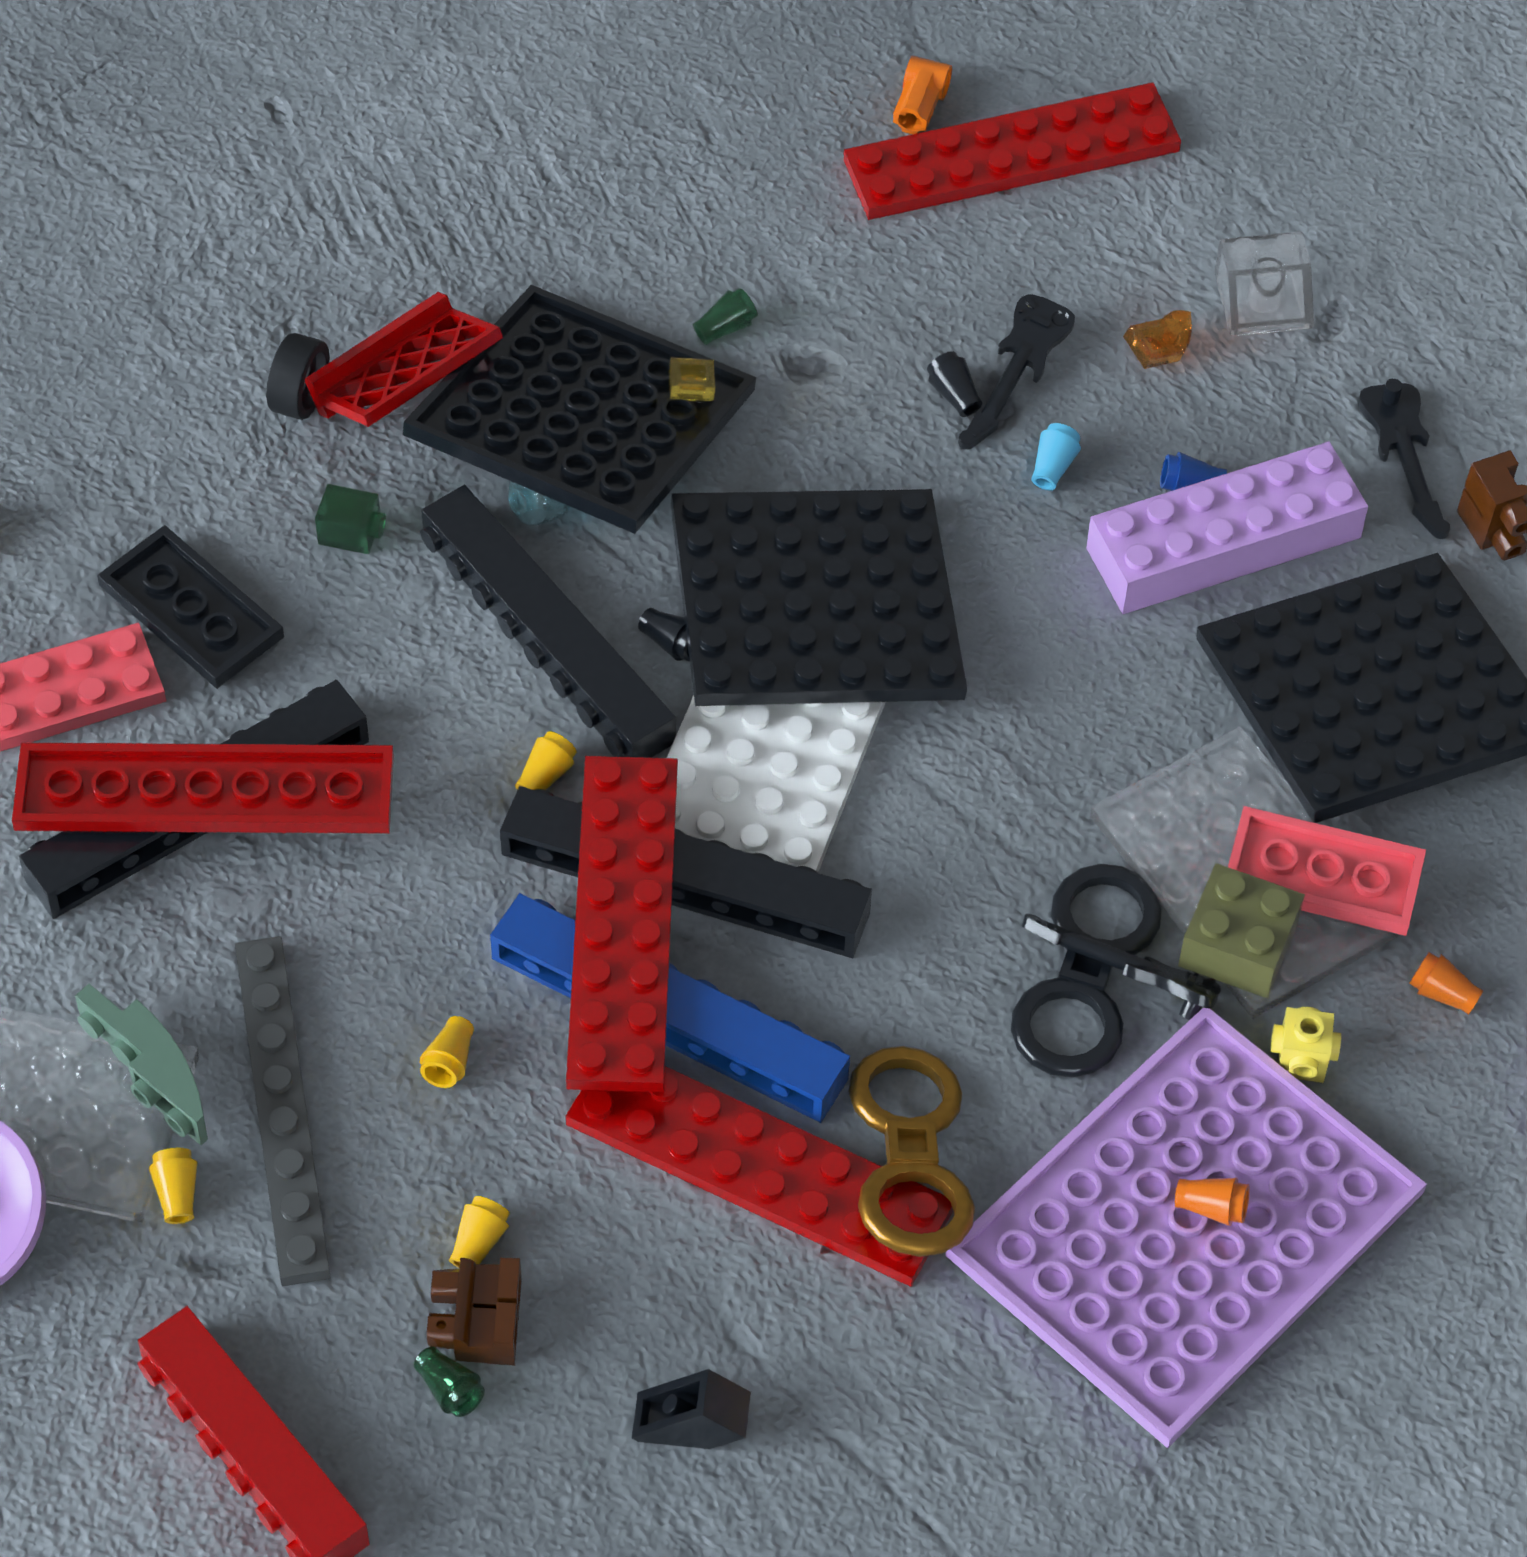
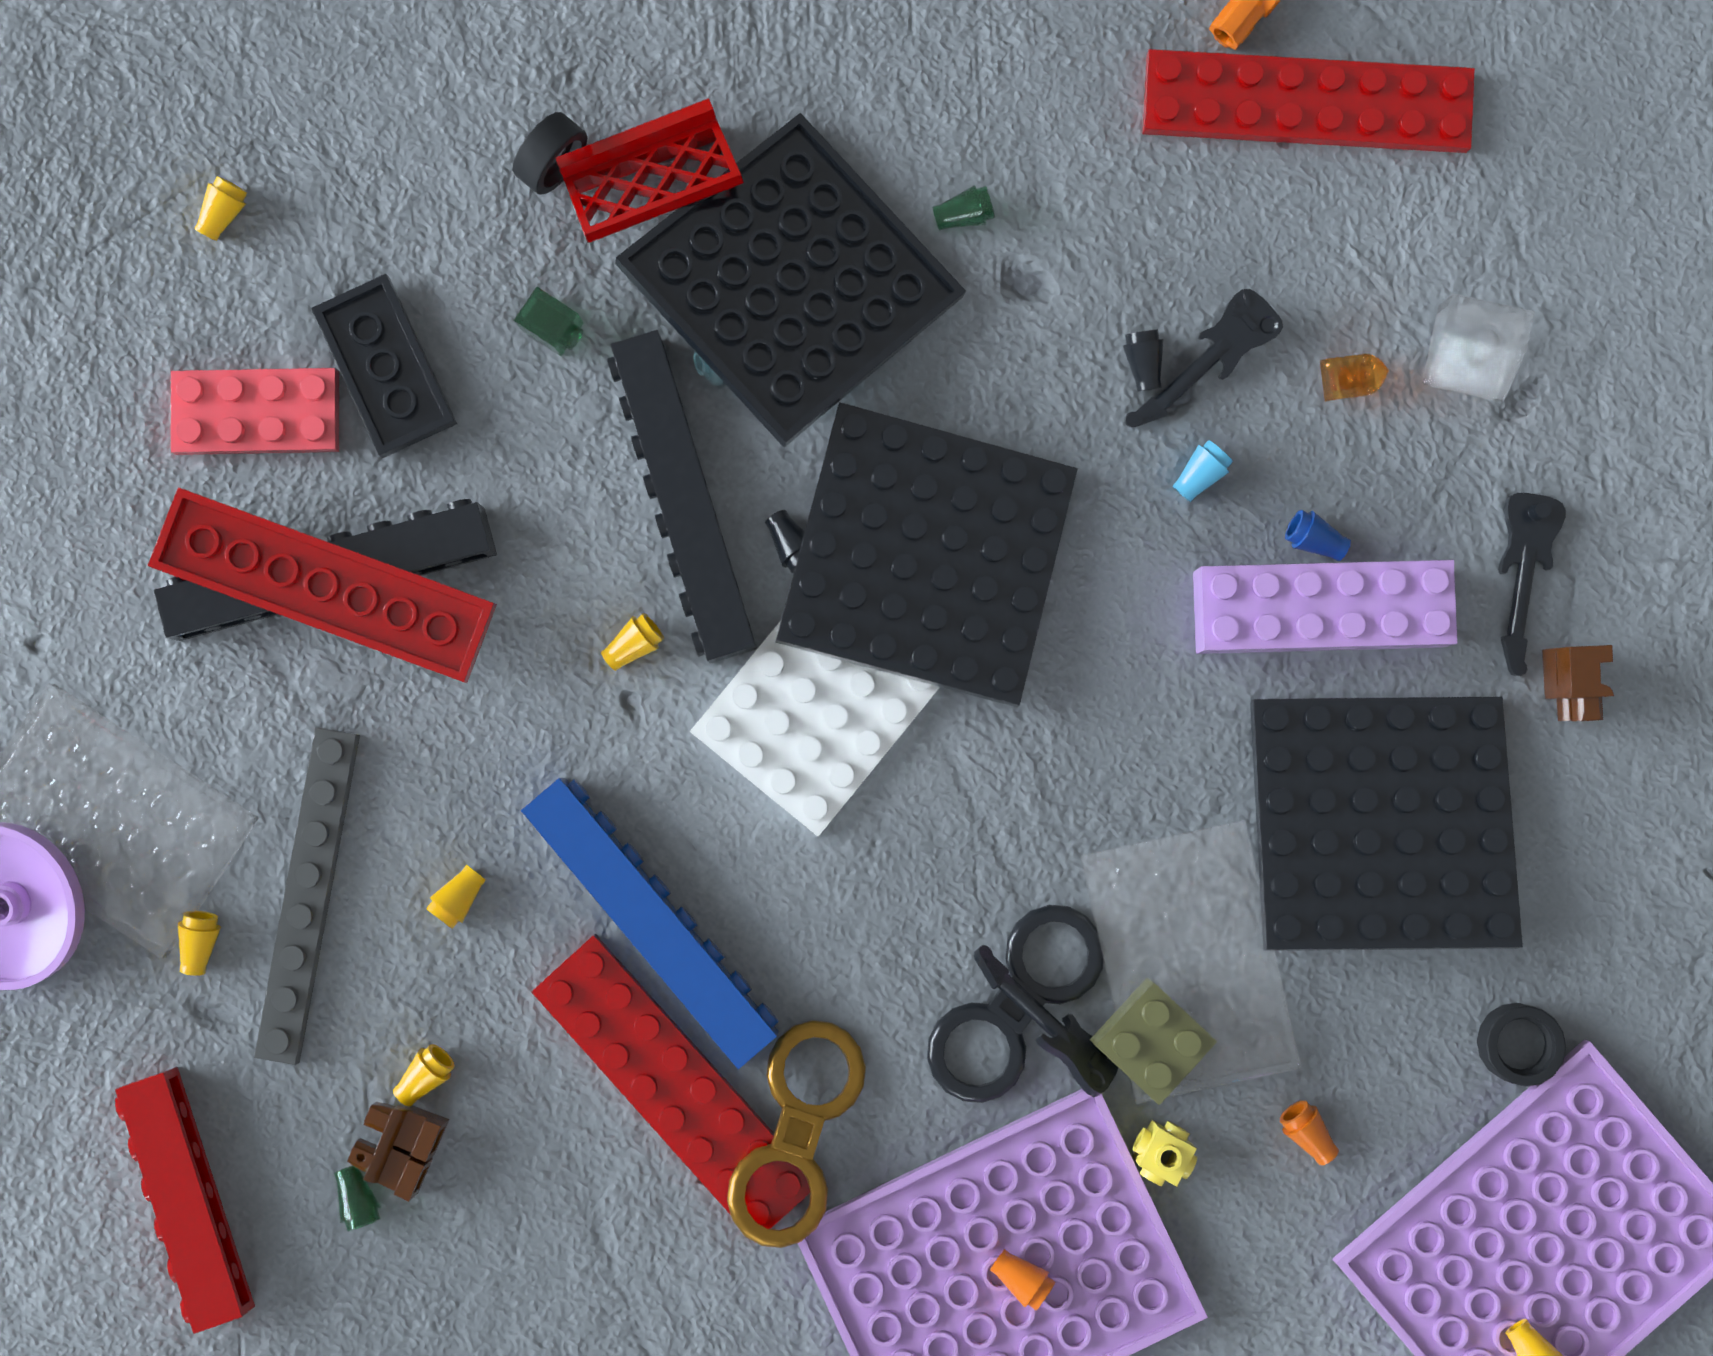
camera: 25 degrees right, 30 degrees up
(153, 1058) = (208, 850): sand green slope -> none
(623, 925) = (633, 842): red plate -> none
(691, 379) = (900, 287): clear yellow plate -> none
(692, 1412) = (534, 1301): black slope -> none
(707, 877) = (711, 793): black brick -> none
(1336, 869) = (1251, 1002): coral plate -> none

